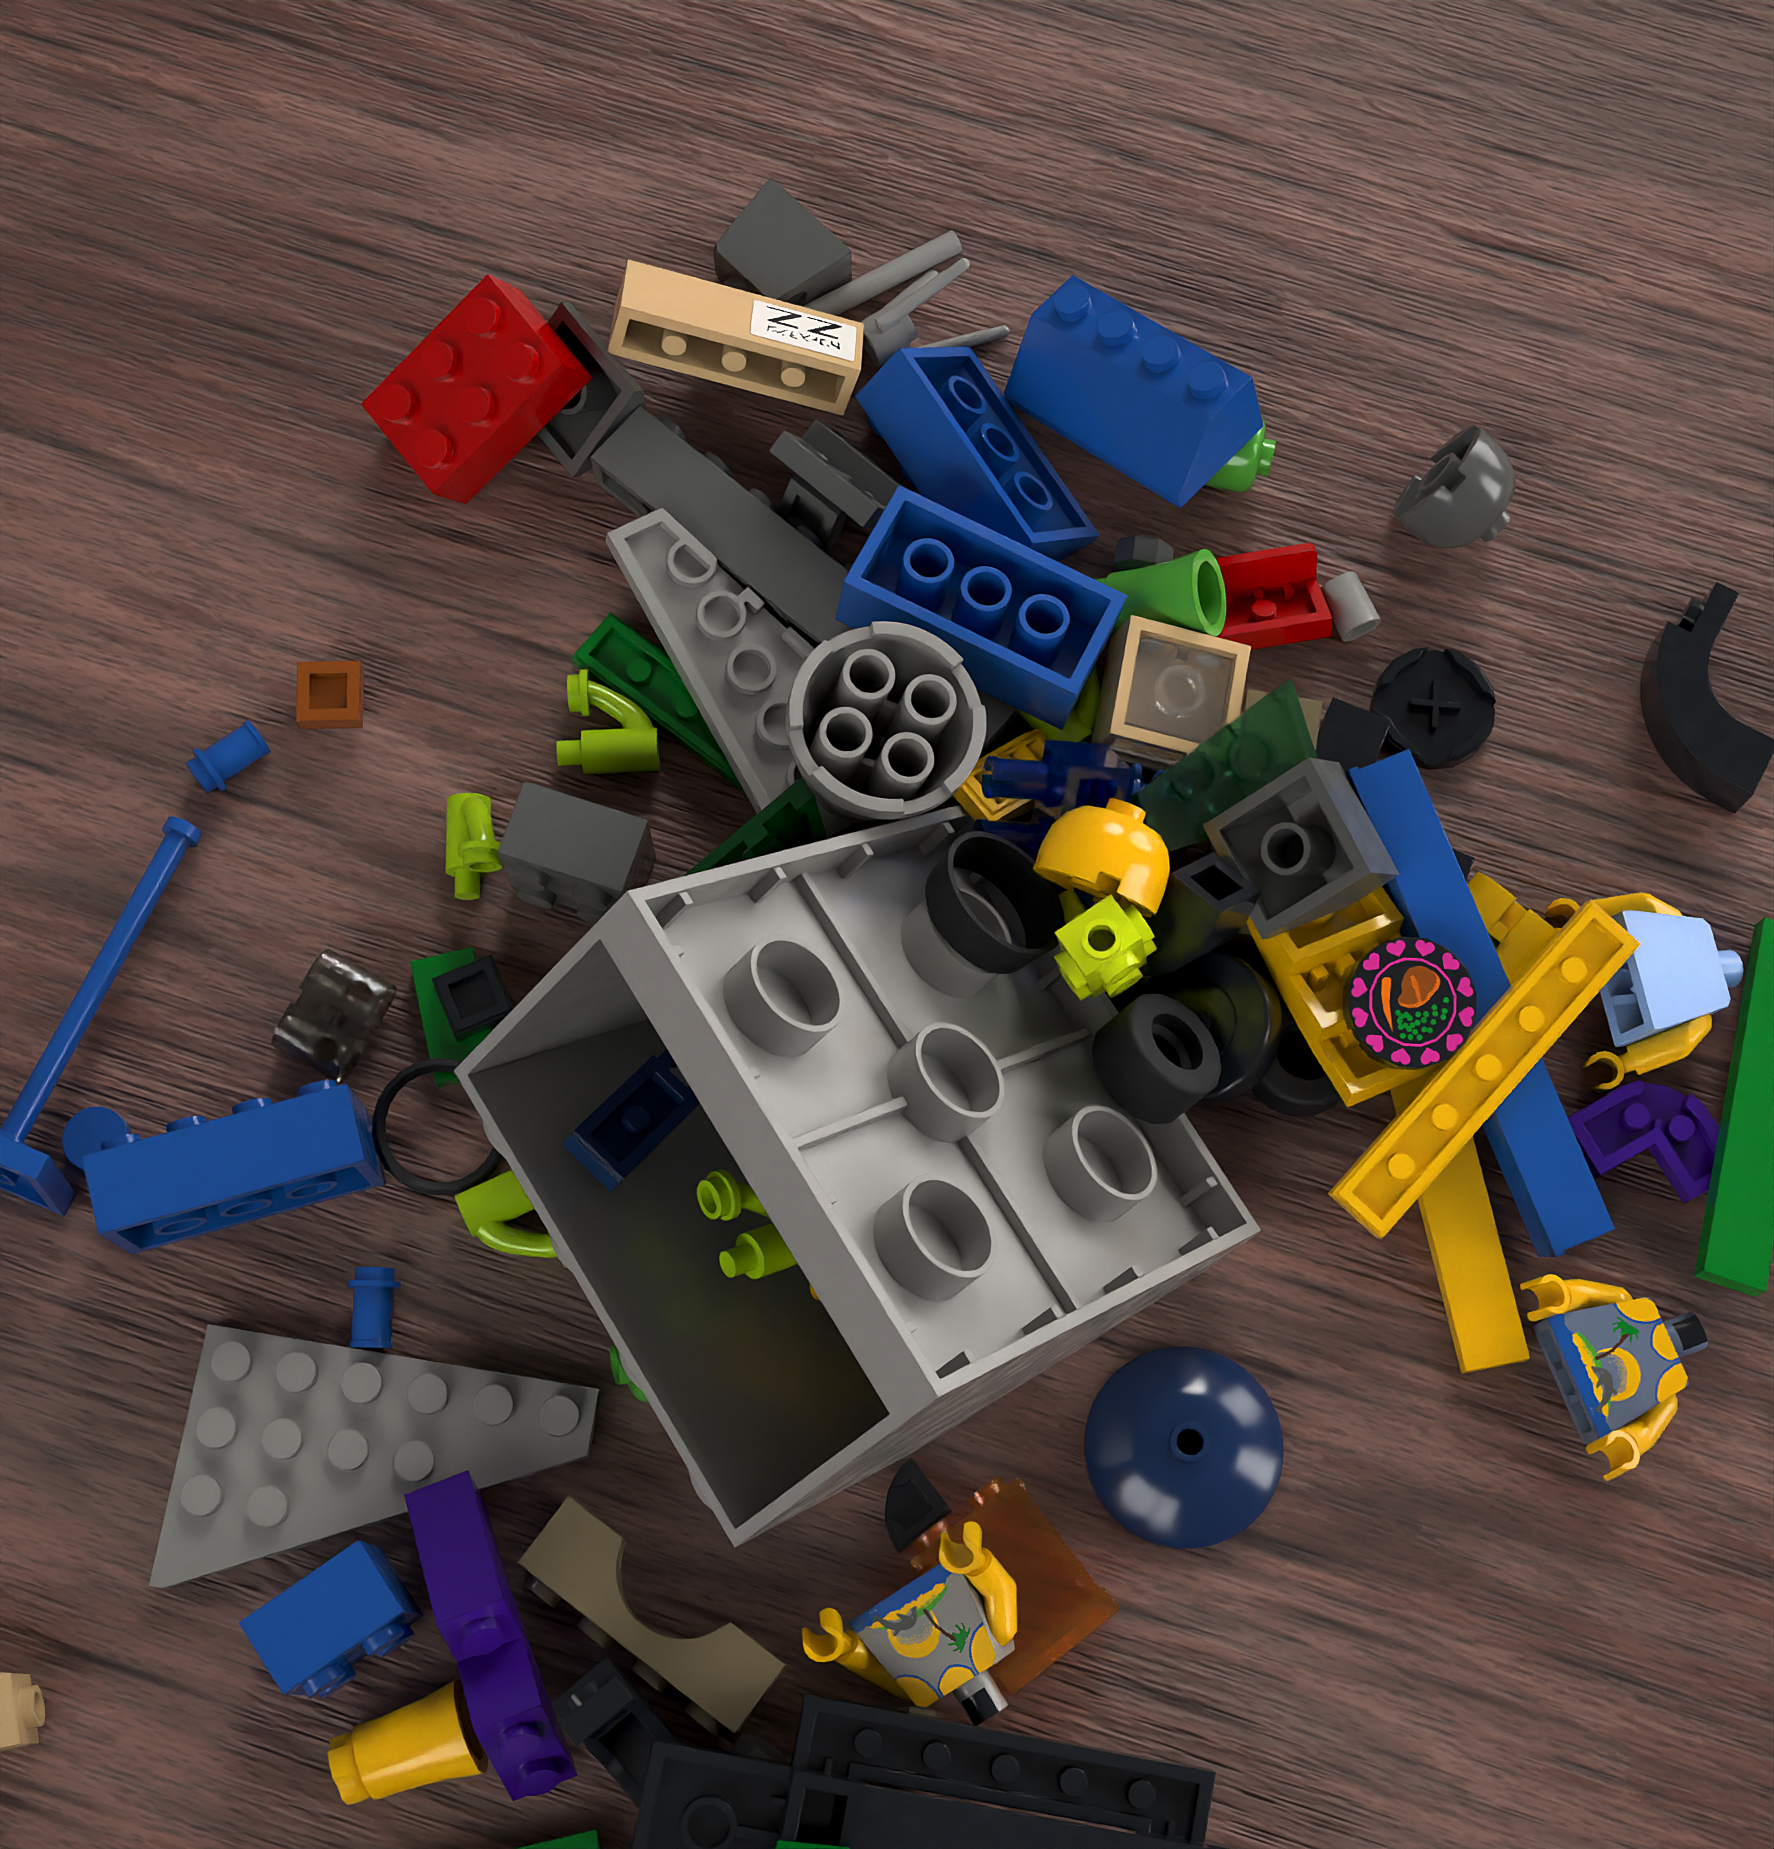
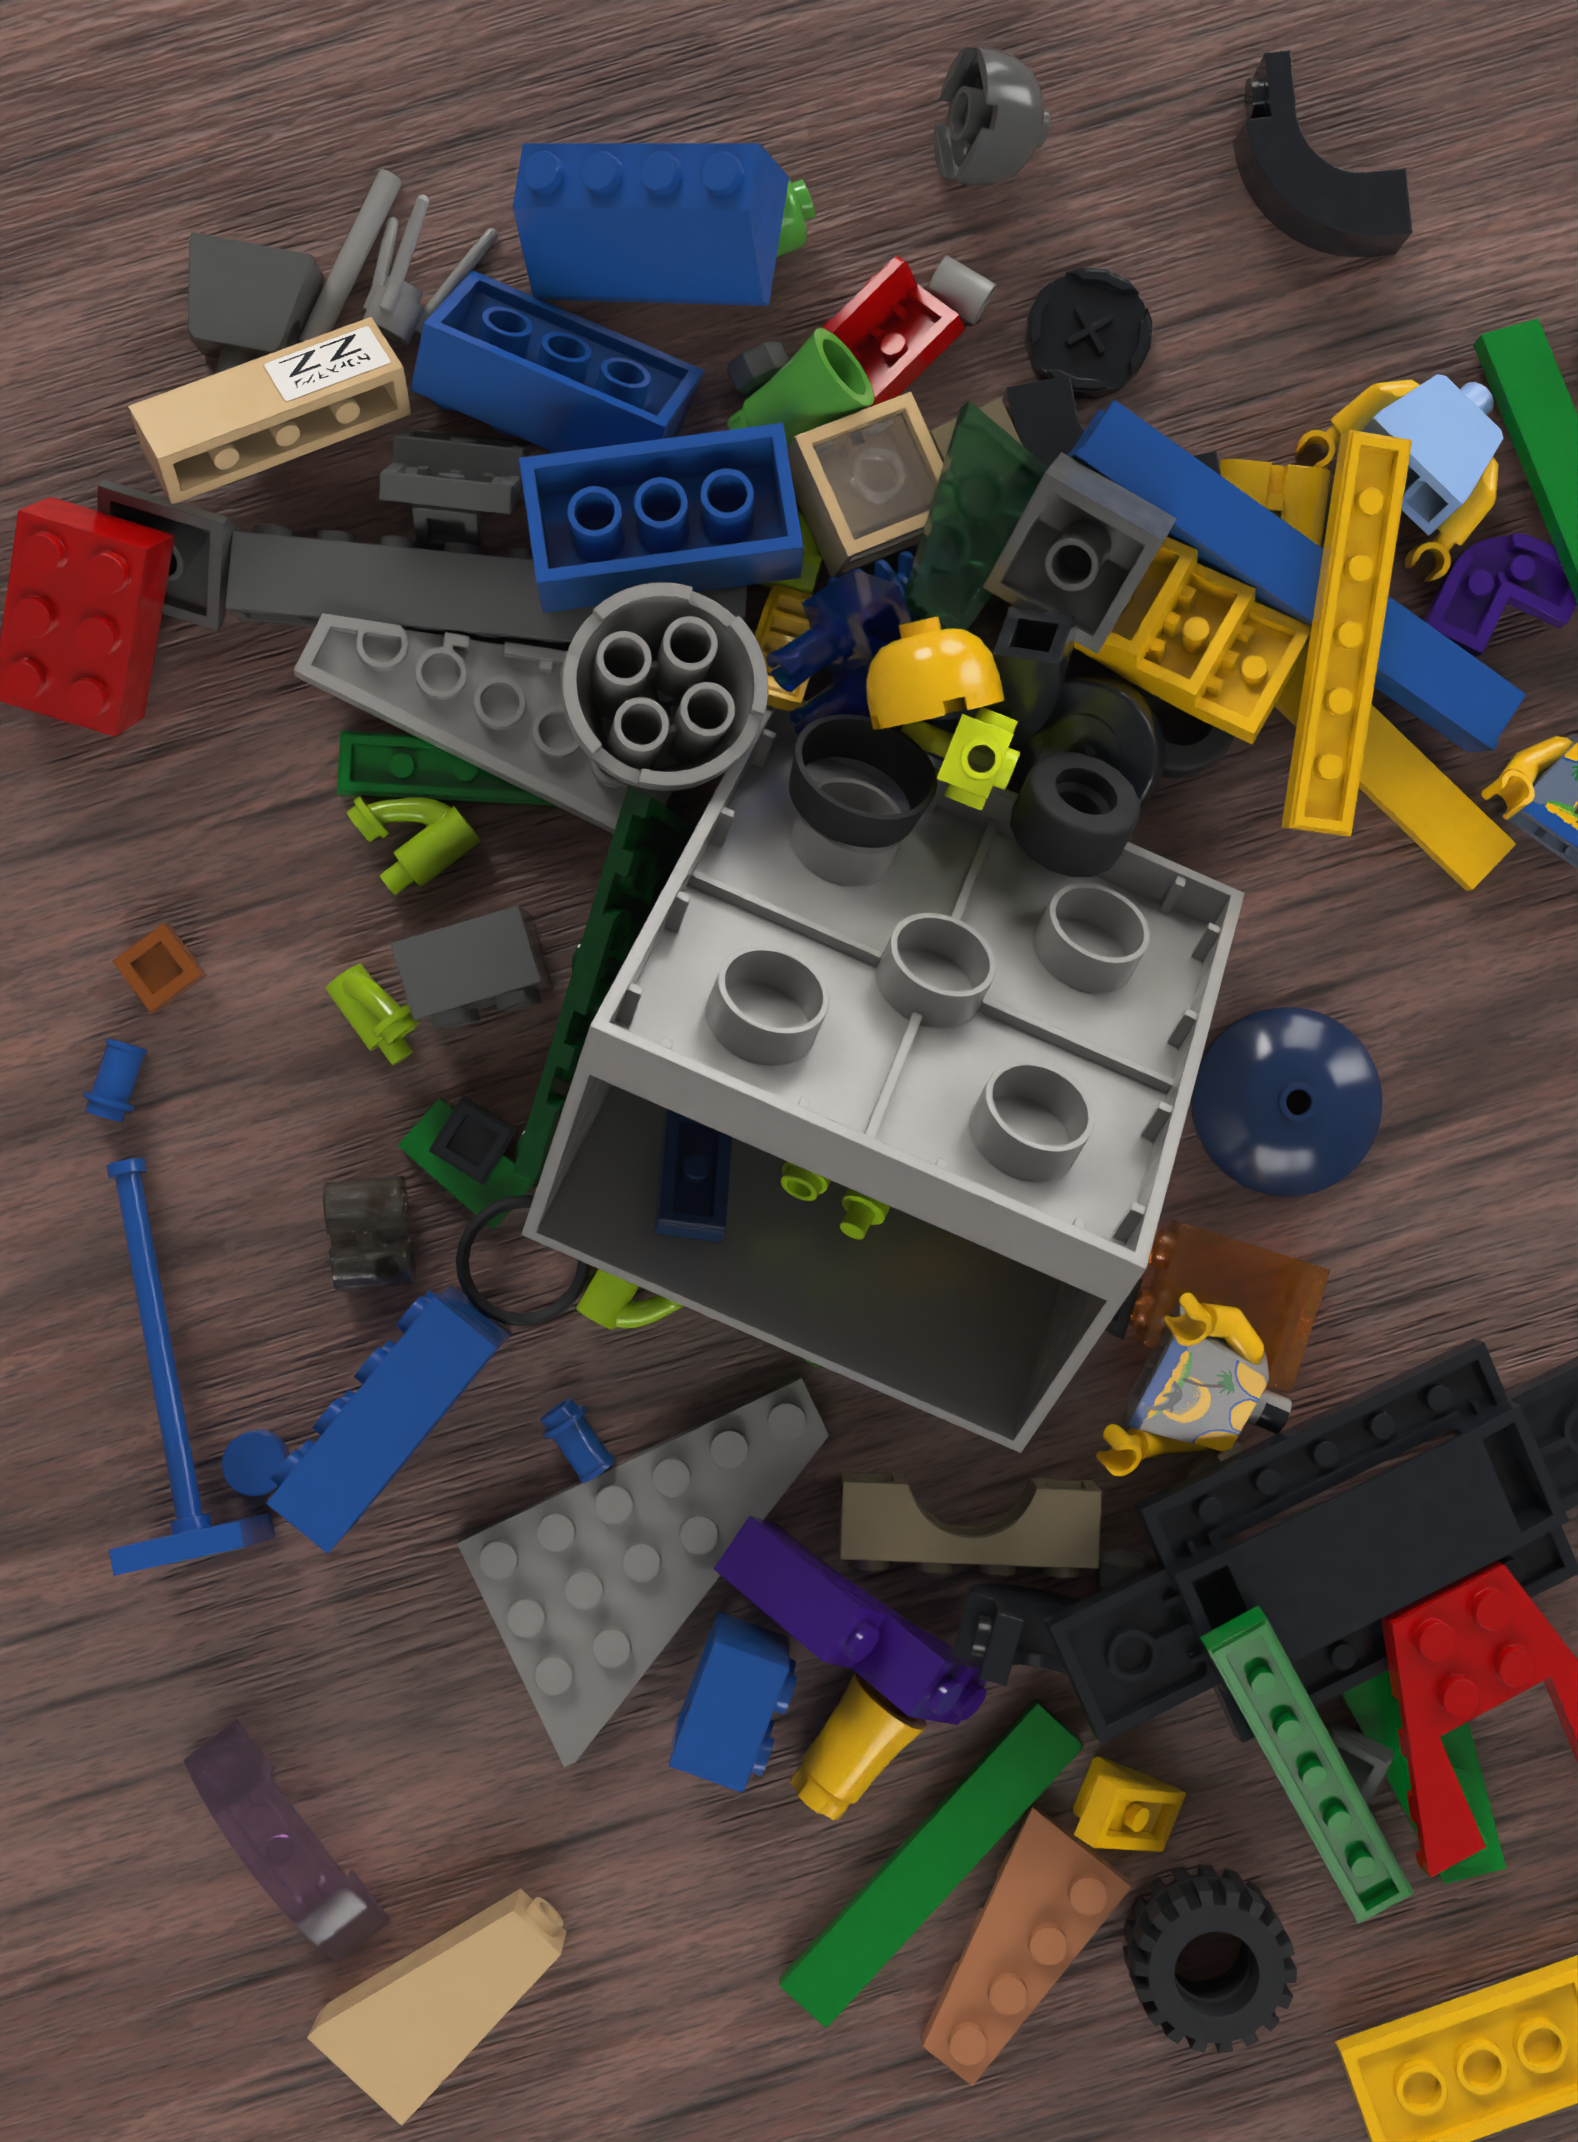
camera: 30 degrees left, 15 degrees up
(1409, 1003) = (1253, 624): black tile -> none

